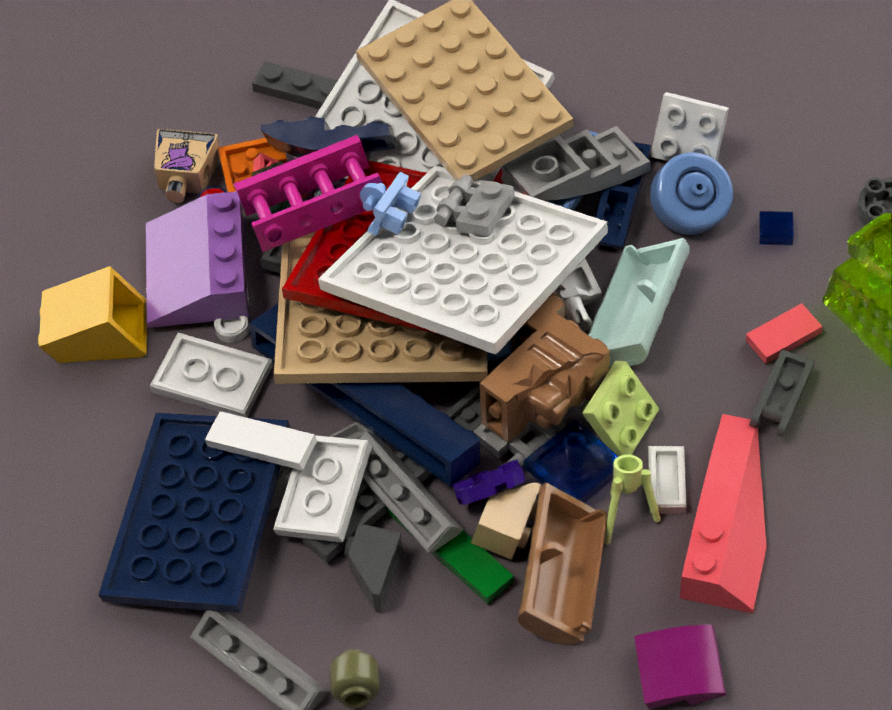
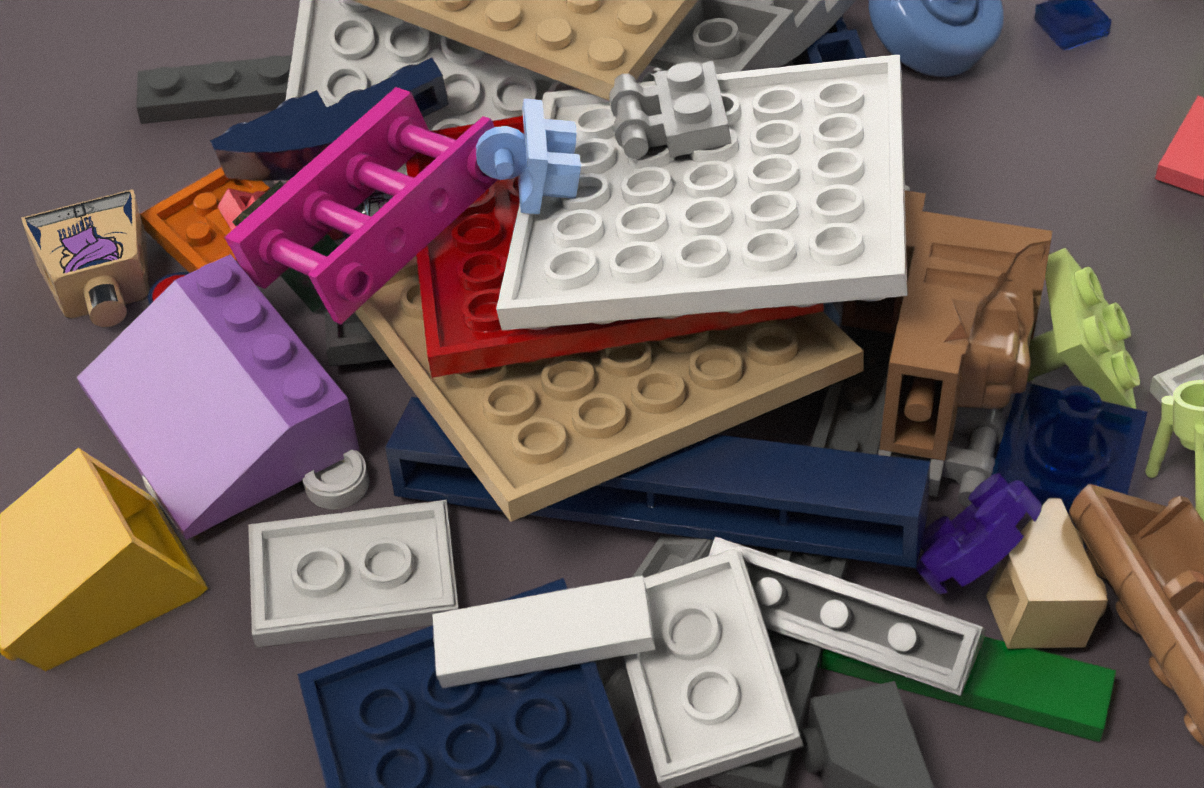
camera: 30 degrees left, 5 degrees down
(638, 299) = (976, 156): light aqua container -> none

